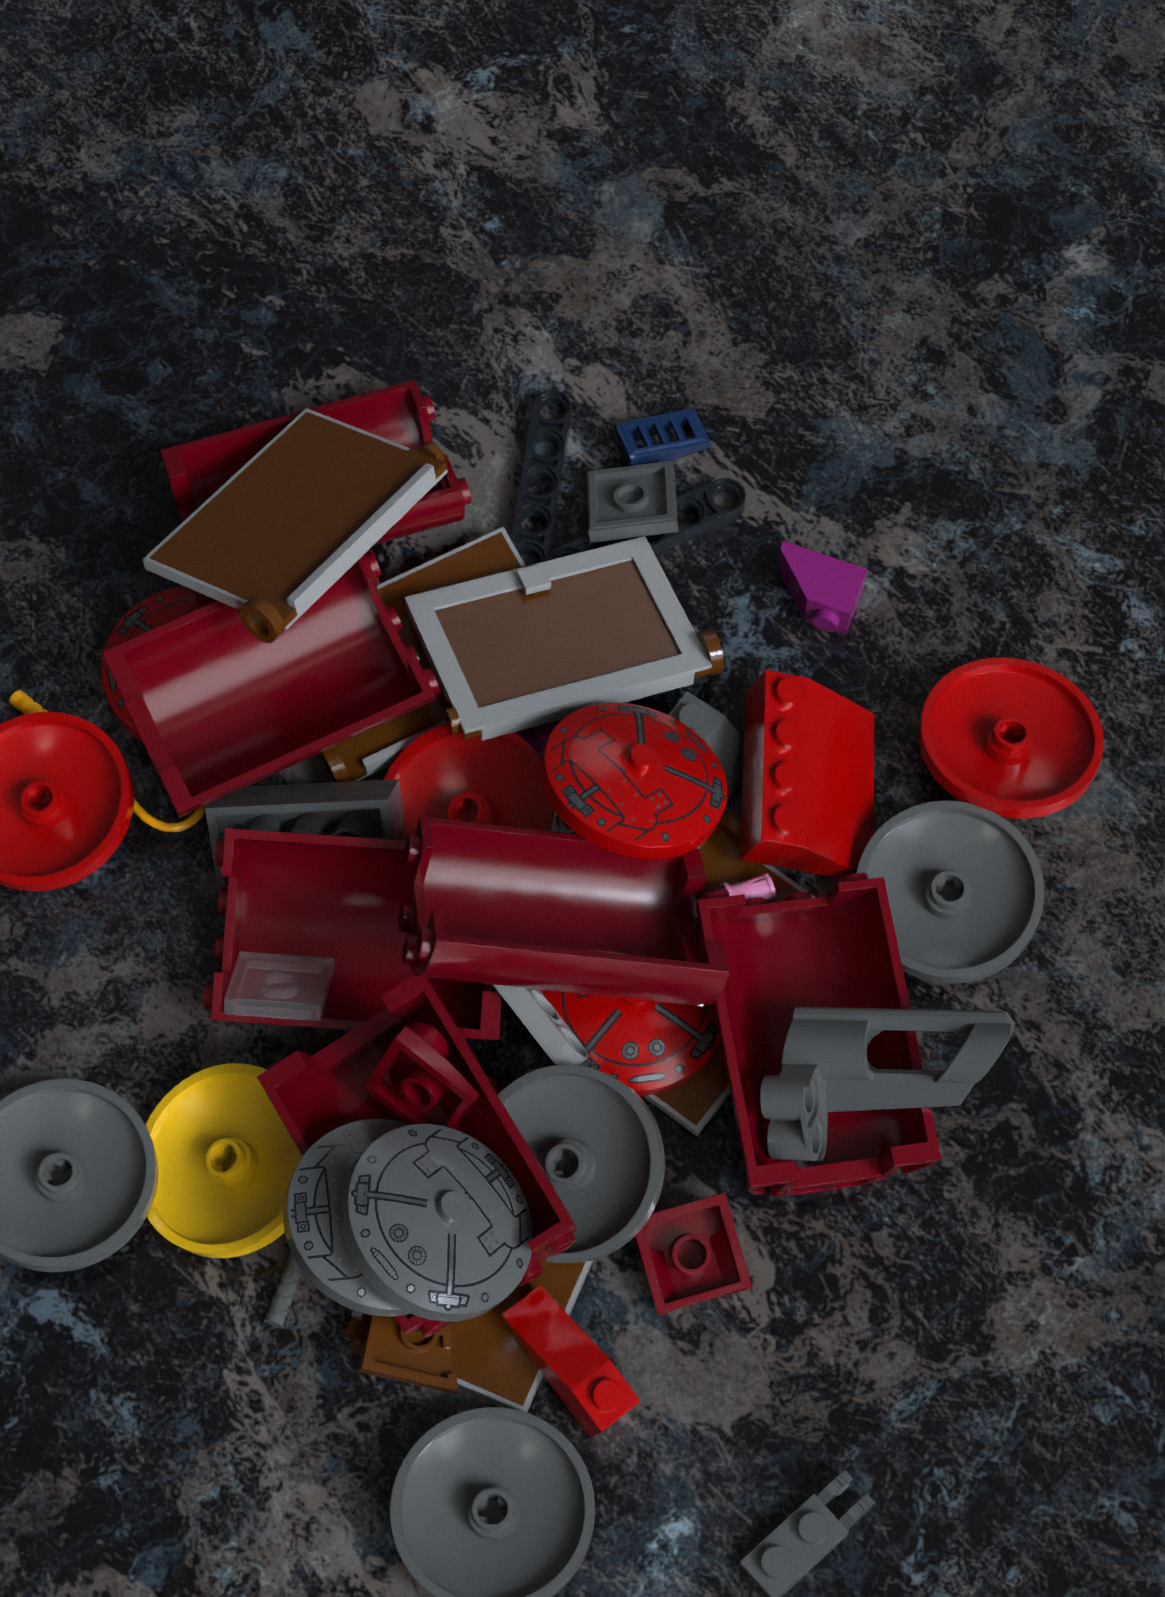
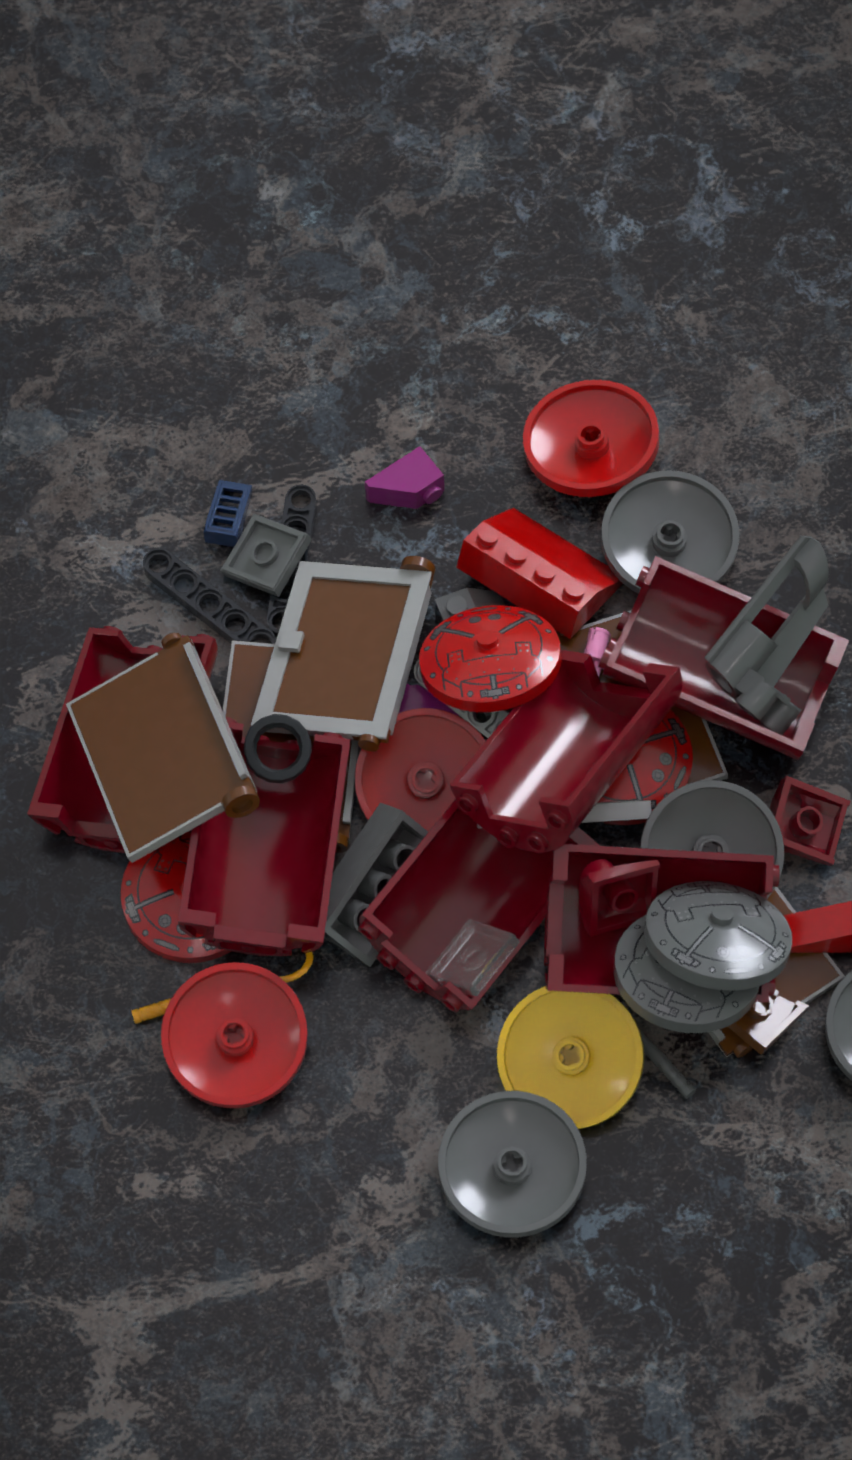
camera: 55 degrees left, 0 degrees up
(354, 615) = (270, 722): none -> black tyre

